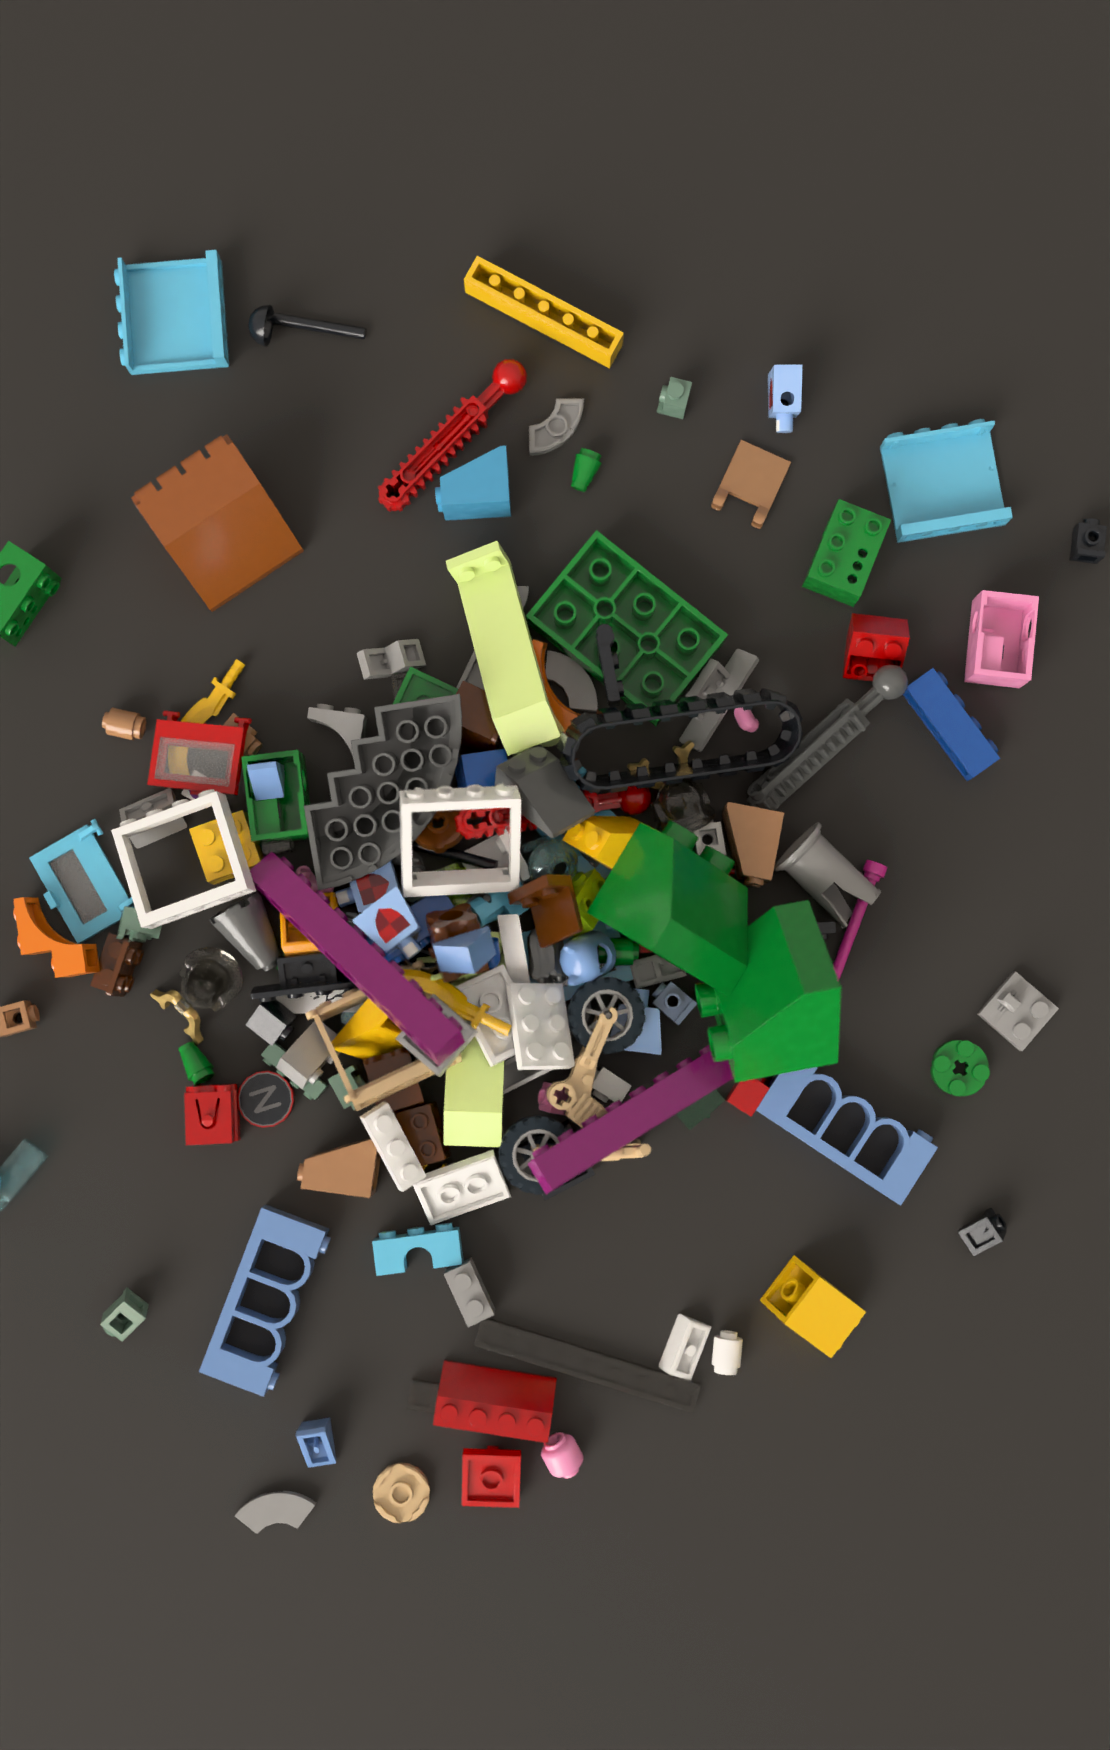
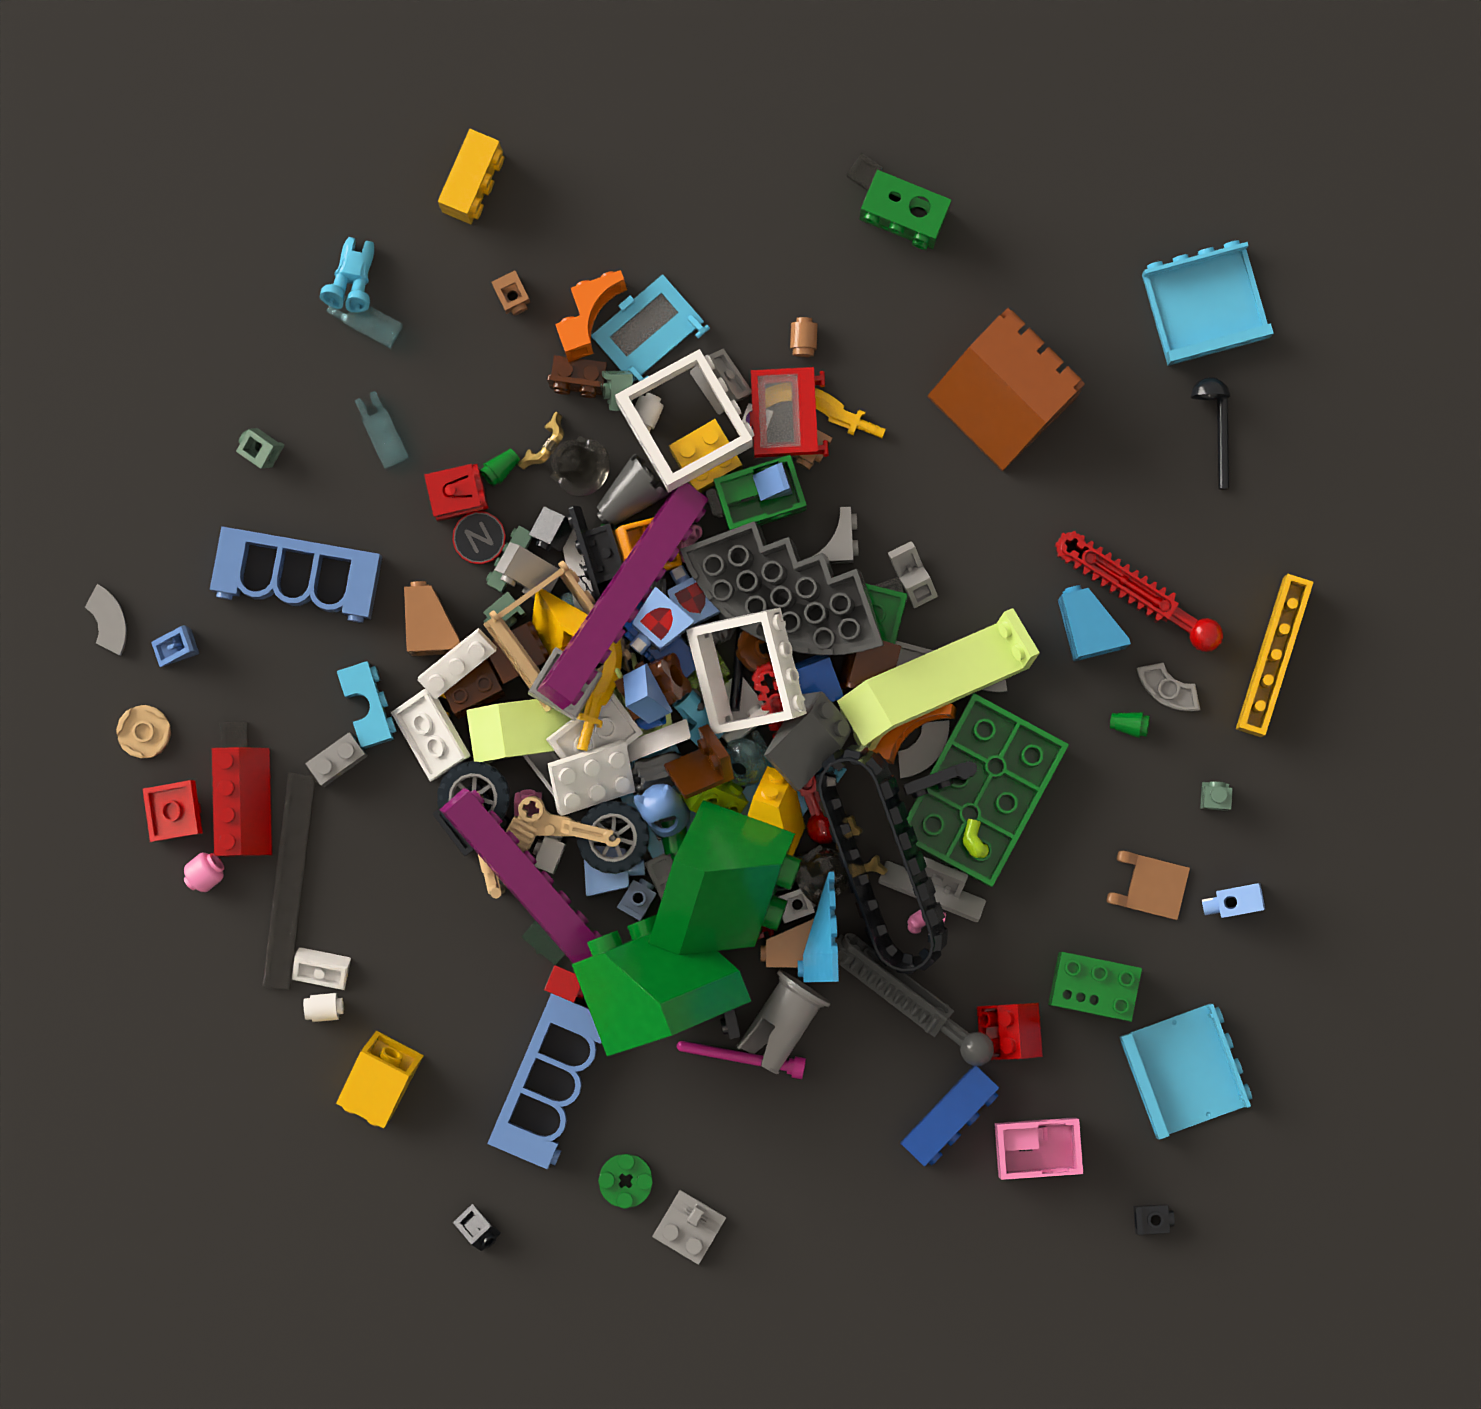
camera: 80 degrees right, 0 degrees up
(135, 1180) = (382, 433): none -> clear light blue hinge
(165, 895) = (649, 409): none -> white brick
(679, 644) = (972, 841): none -> lime arm
(773, 818) = (821, 950): none -> dark azure slope

